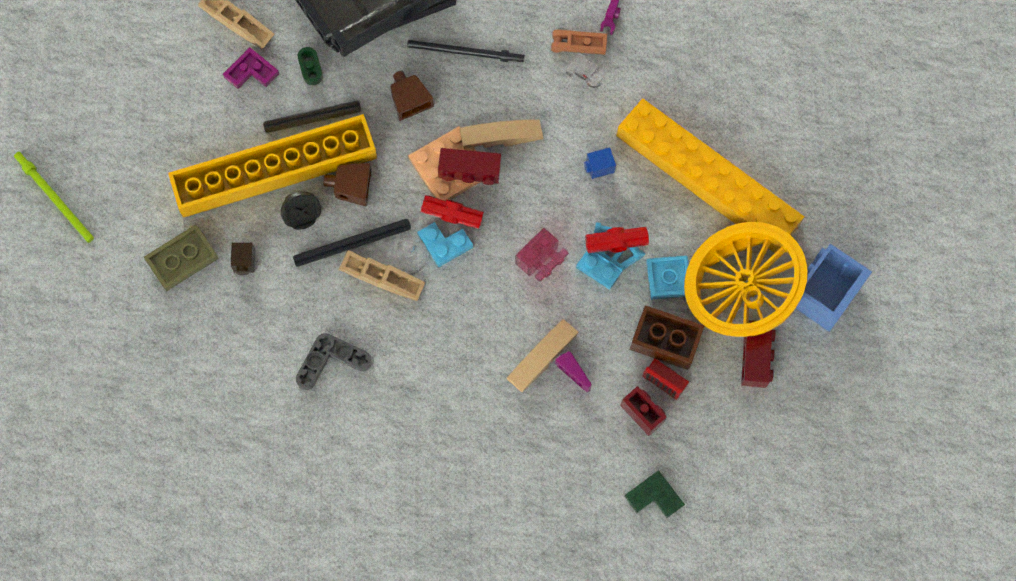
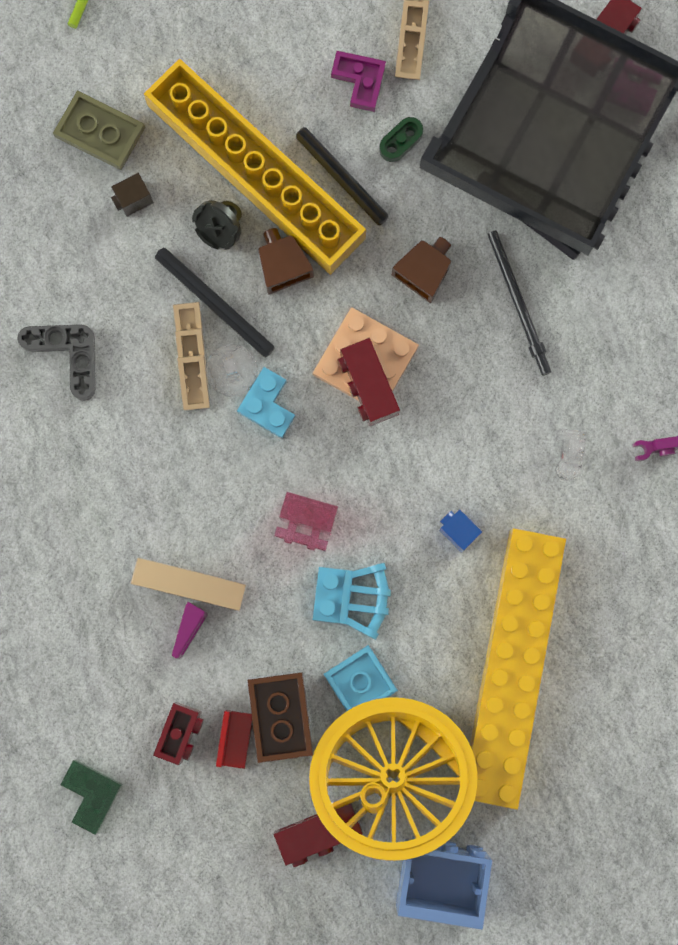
camera: 65 degrees right, 10 degrees up
(452, 211) = (306, 392): red piece -> none
(500, 133) = (434, 397): tan slope -> none
(579, 42) = (604, 427): nougat plate -> none
(617, 239) = (368, 598): red piece -> none

